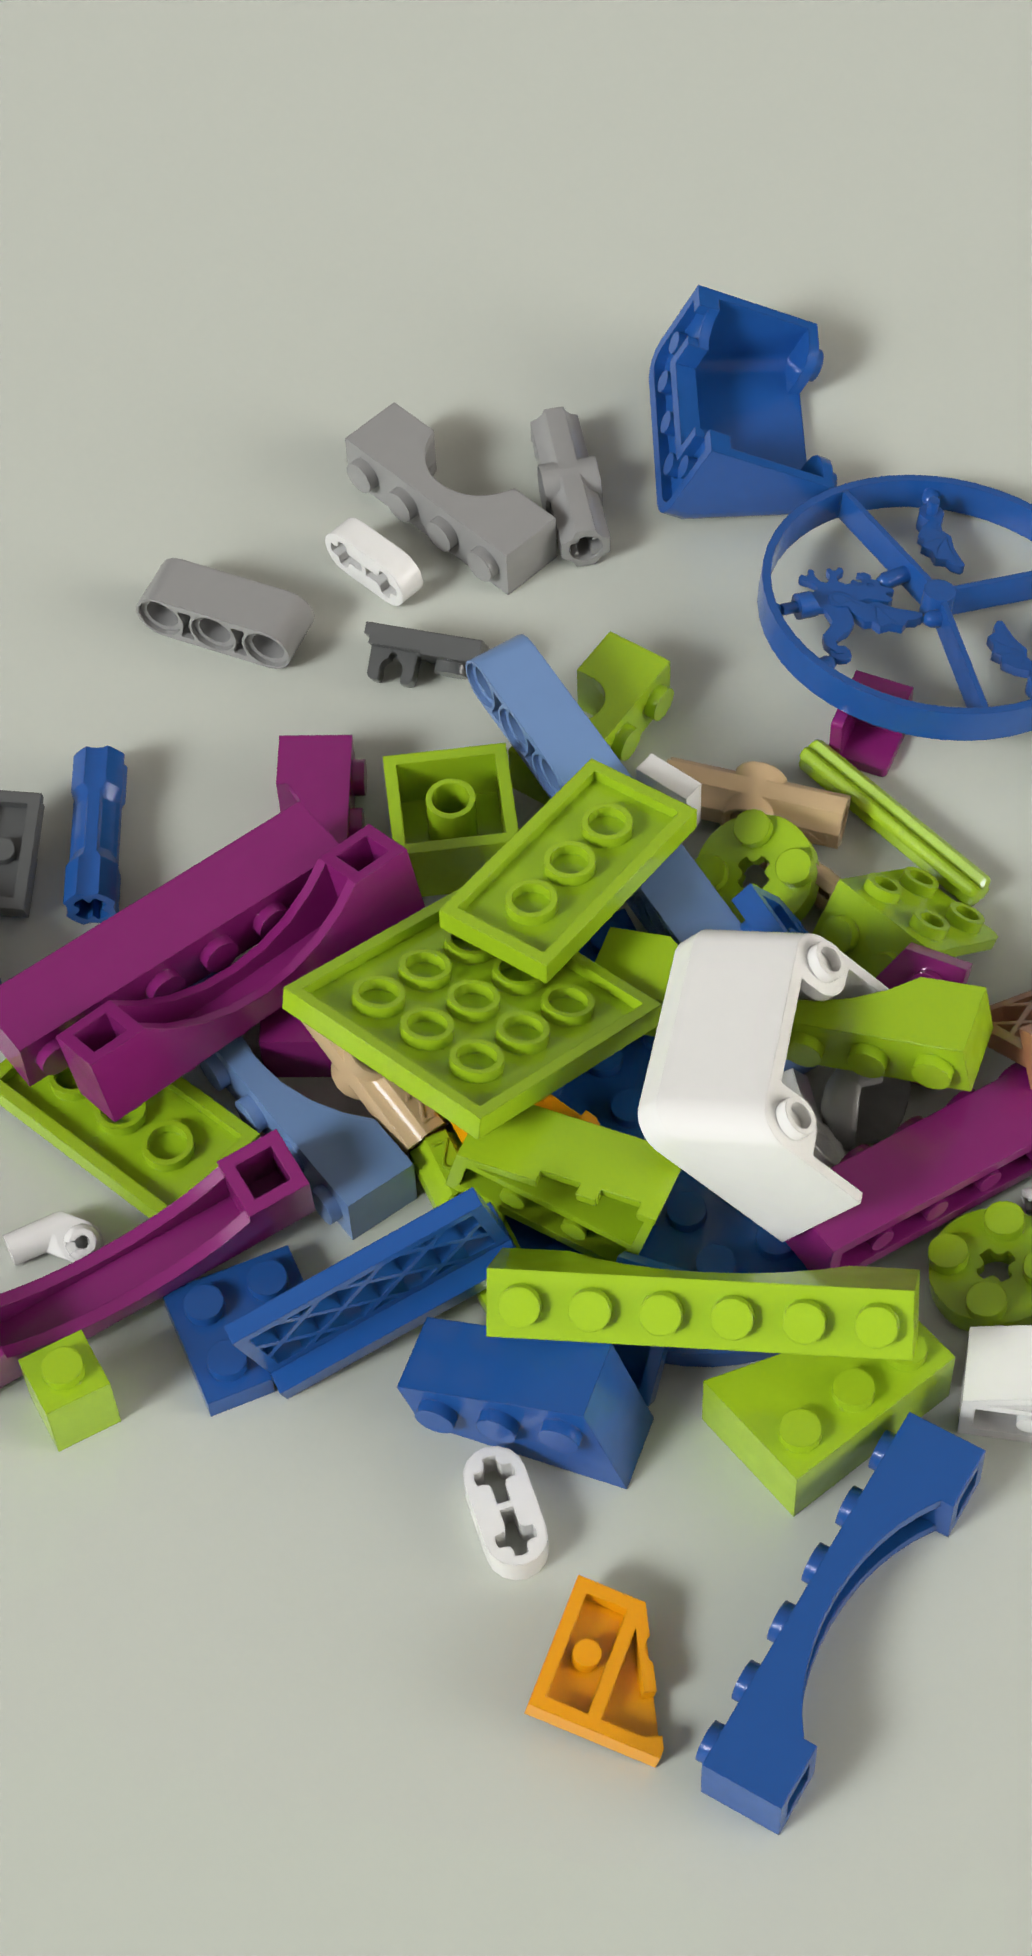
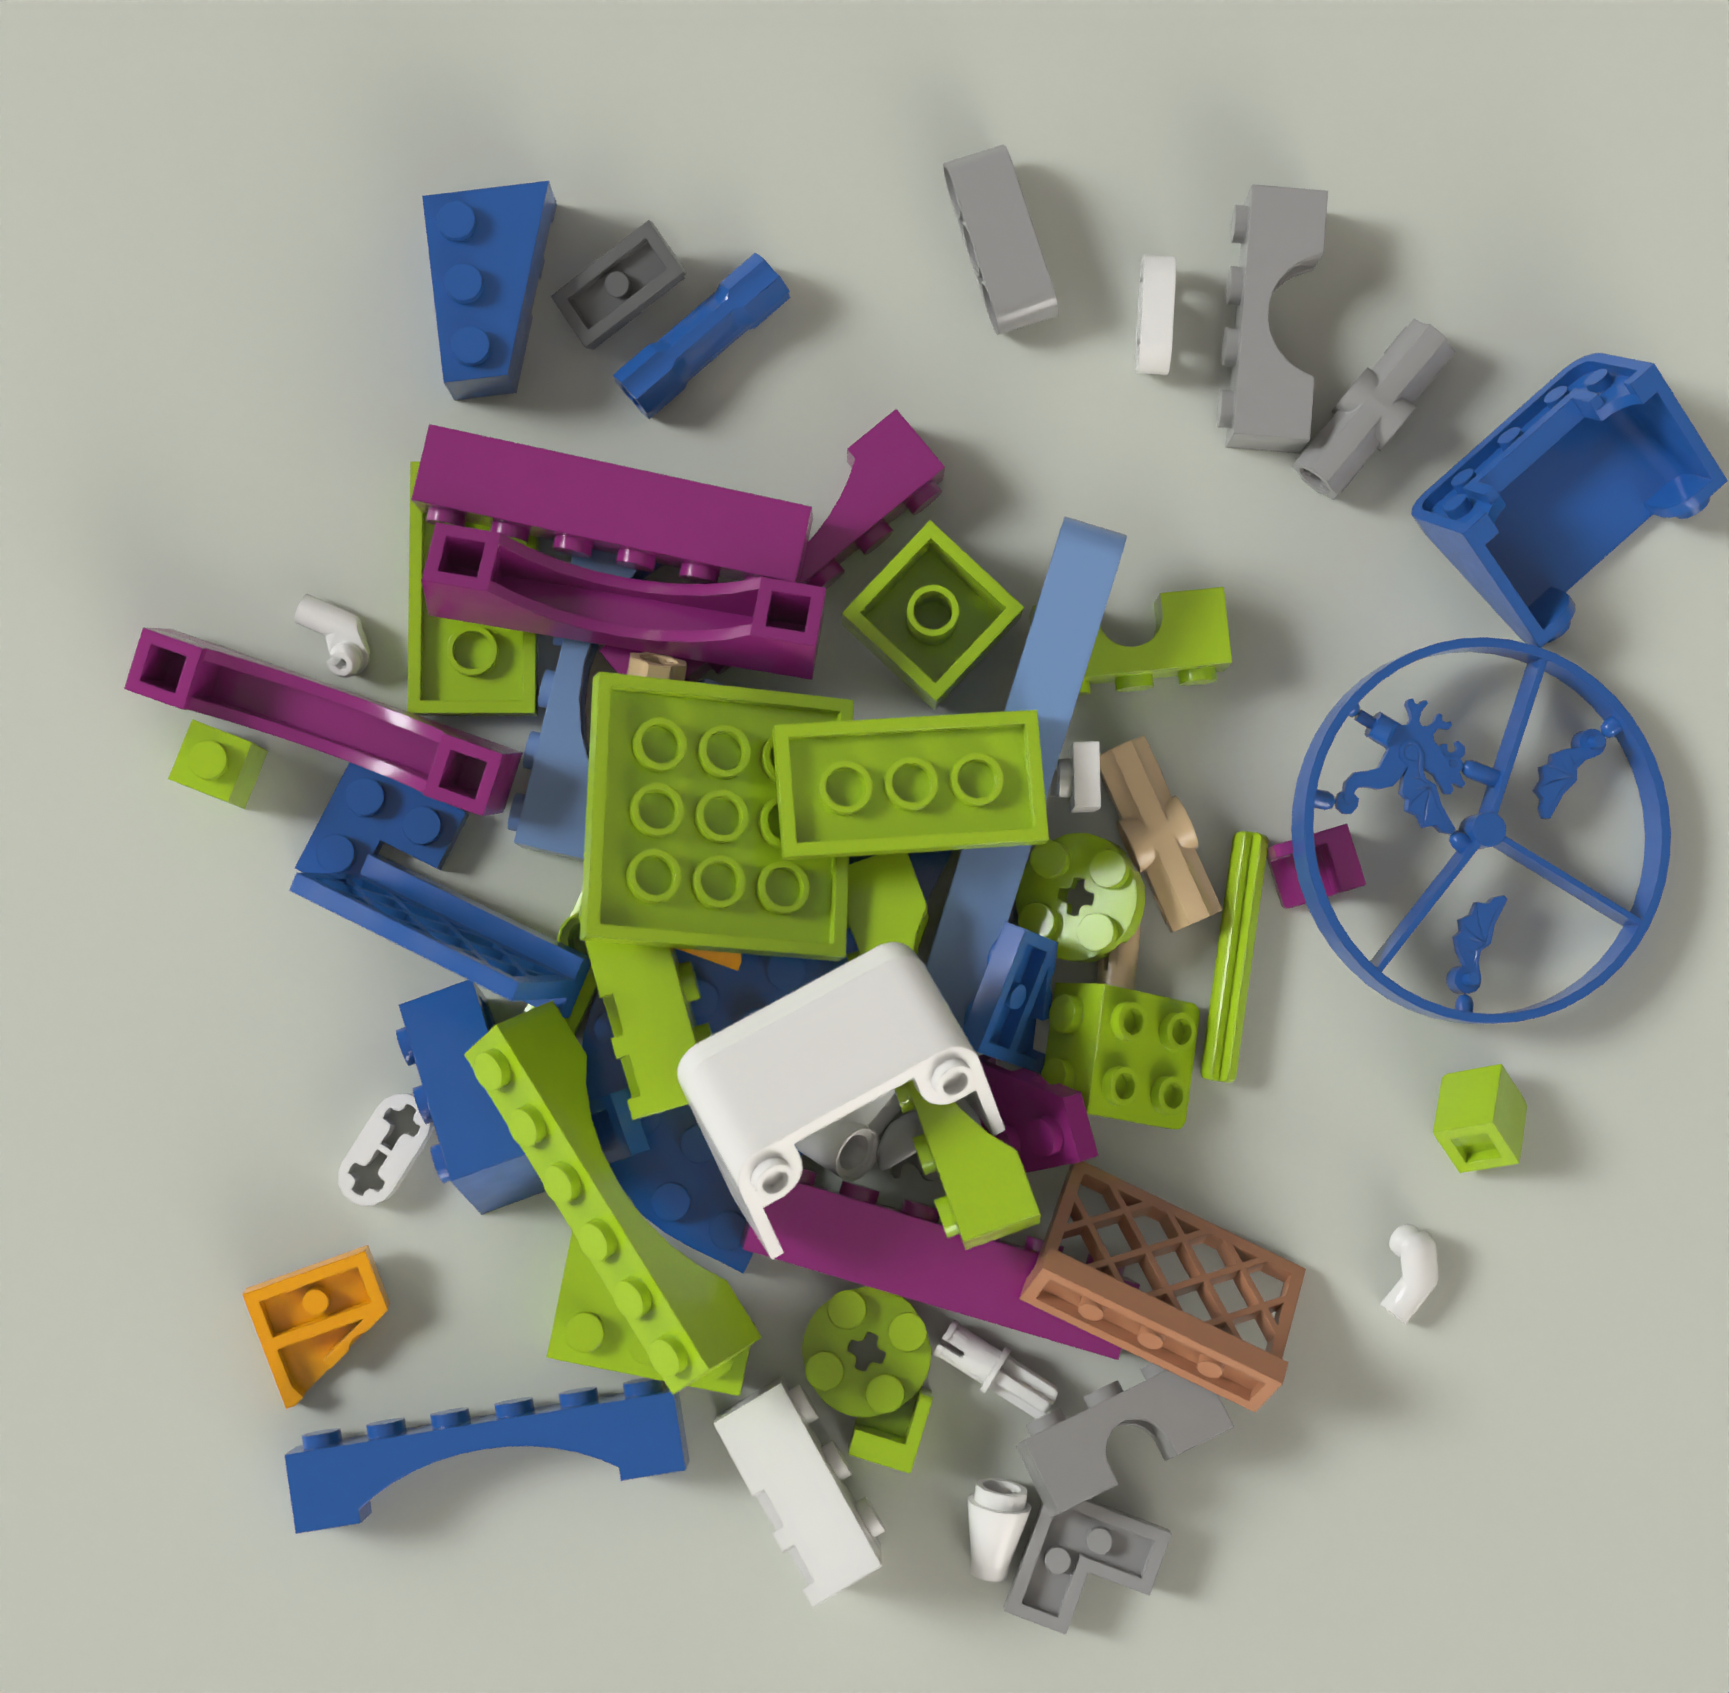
camera: 45 degrees right, 30 degrees up
(412, 645) = (1093, 431): dark grey plate -> none

